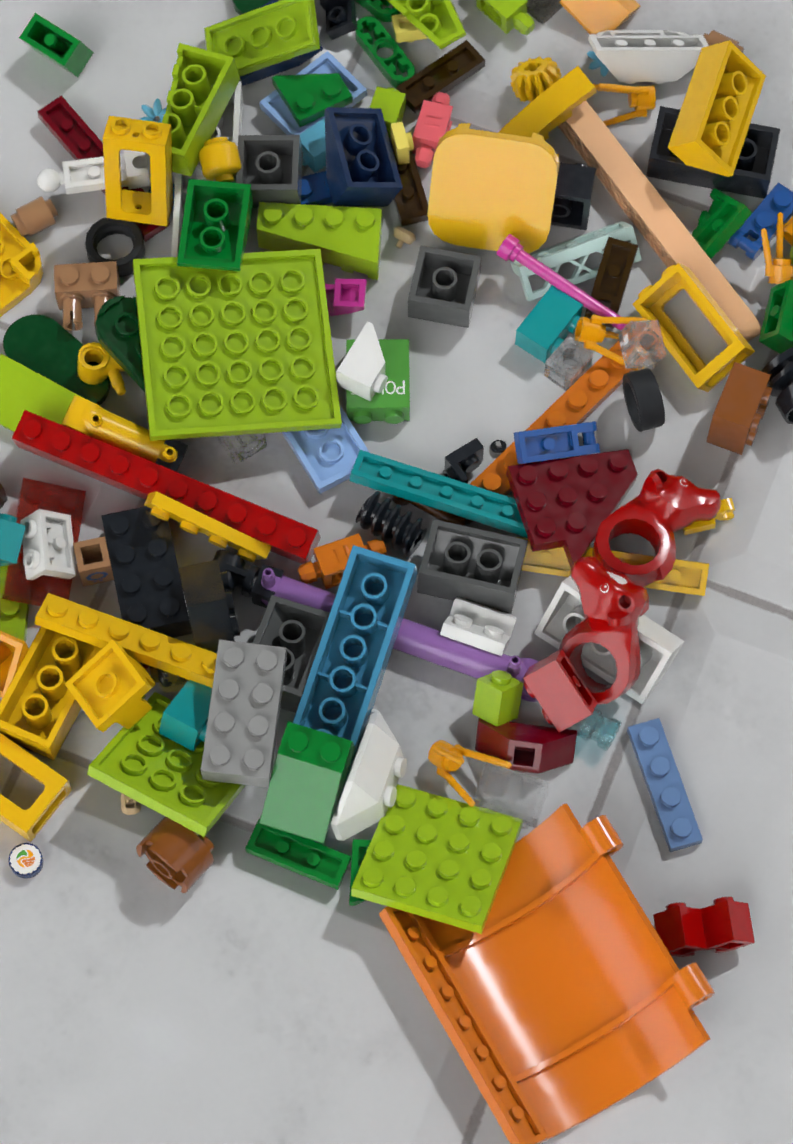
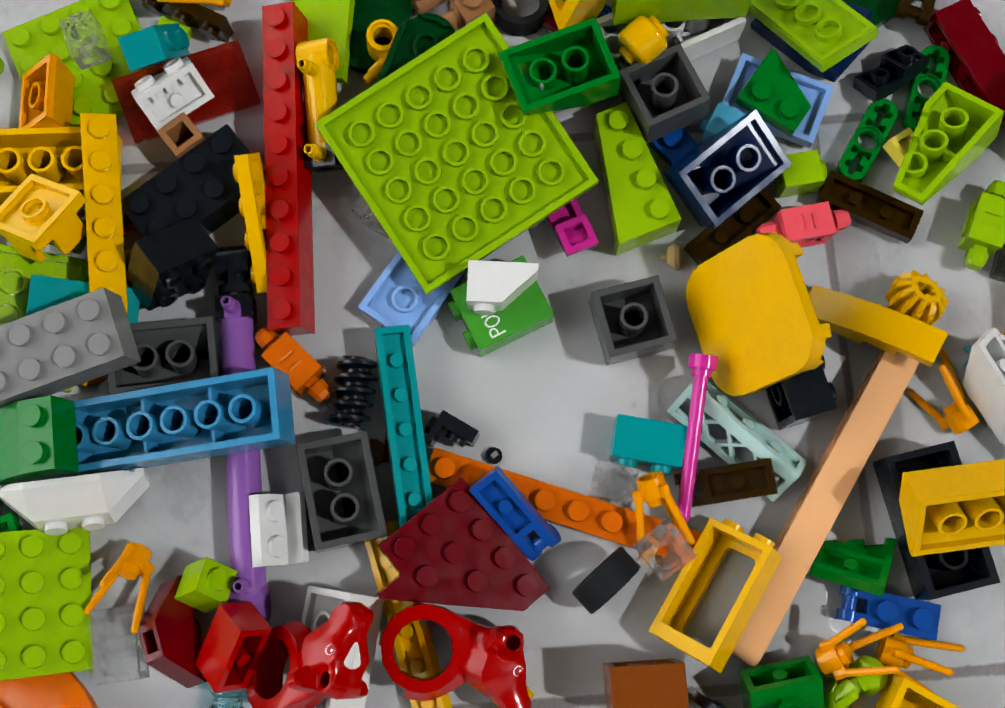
camera: 65 degrees right, 10 degrees up
(401, 142) = (766, 203): light yellow plate -> none

